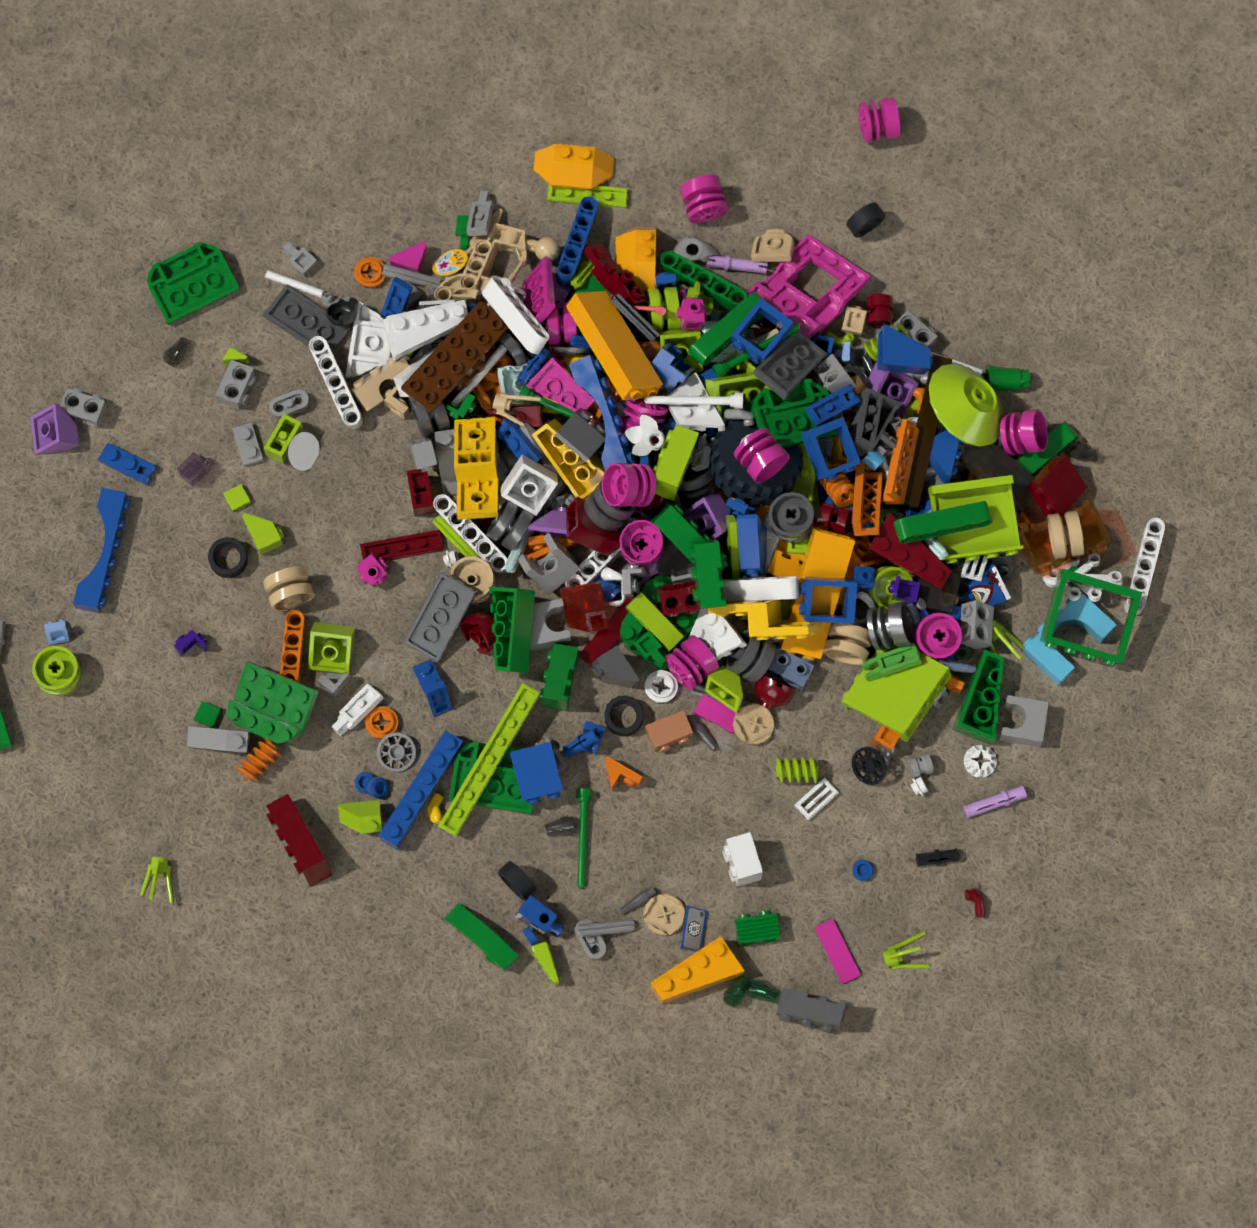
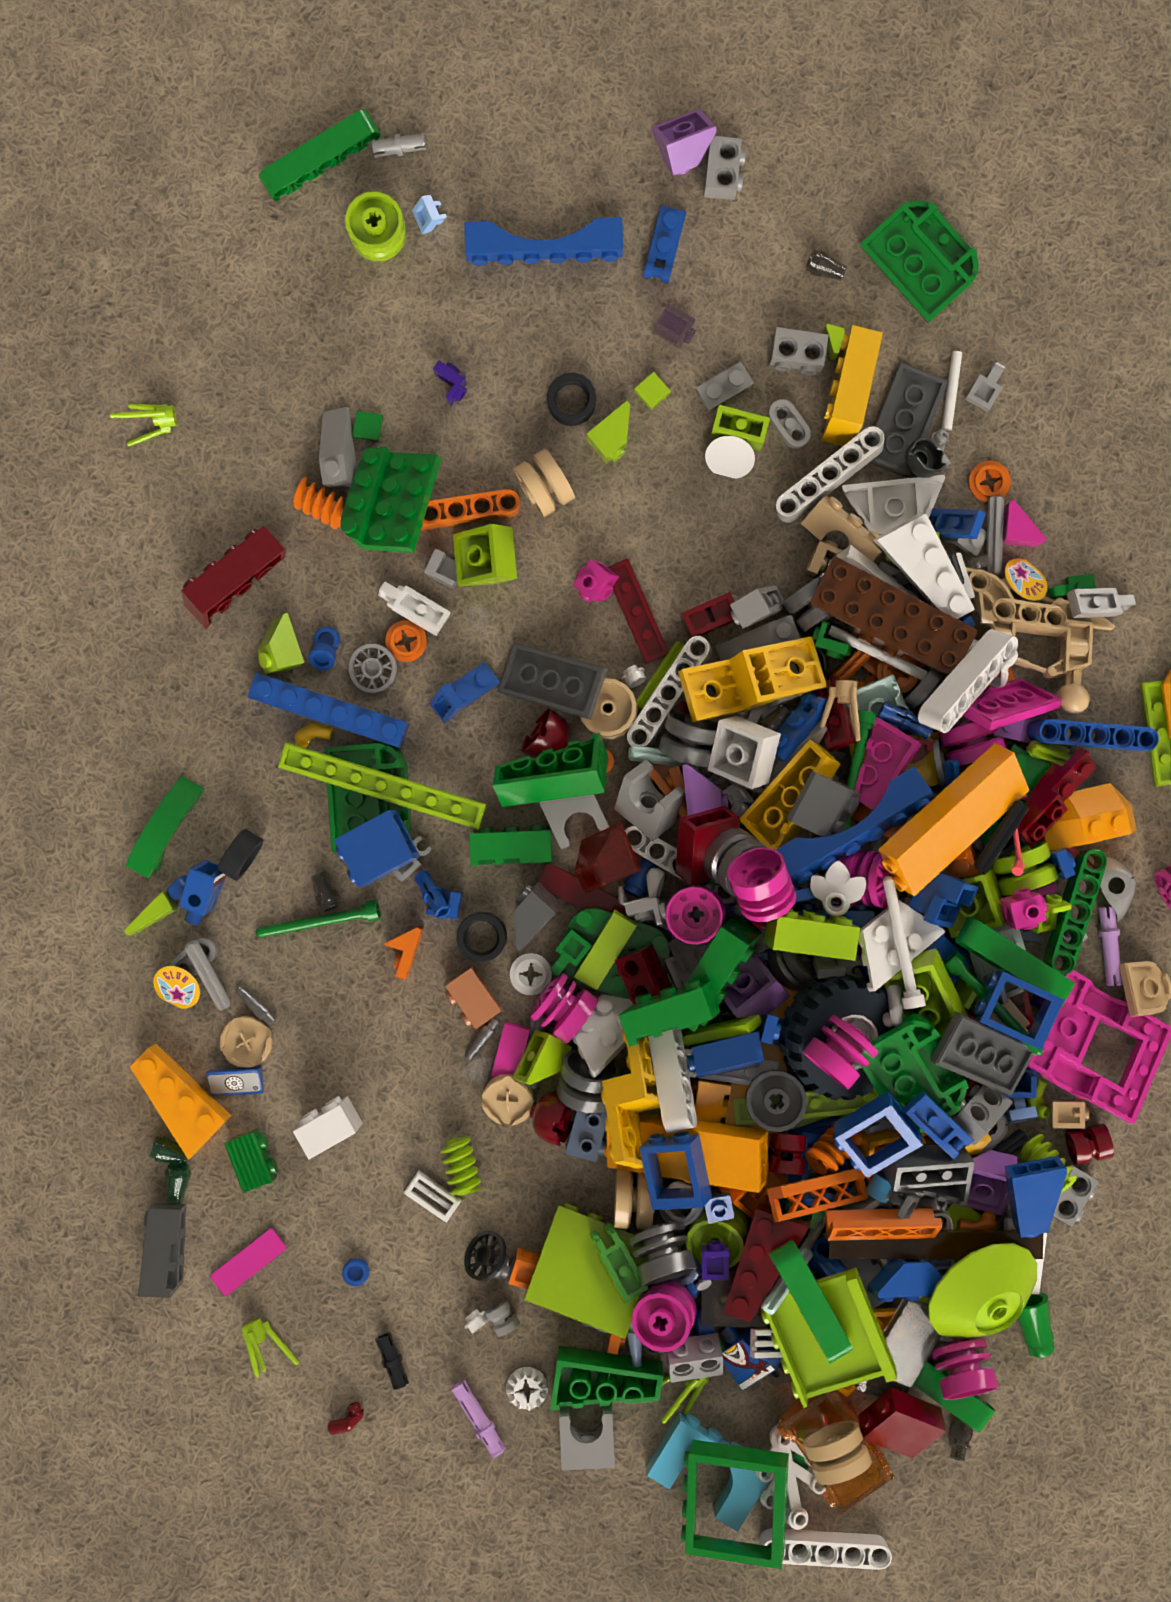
camera: 80 degrees right, 15 degrees up
(274, 352) = (853, 385): none -> yellow wedge
(608, 956) = (176, 986): none -> sticker

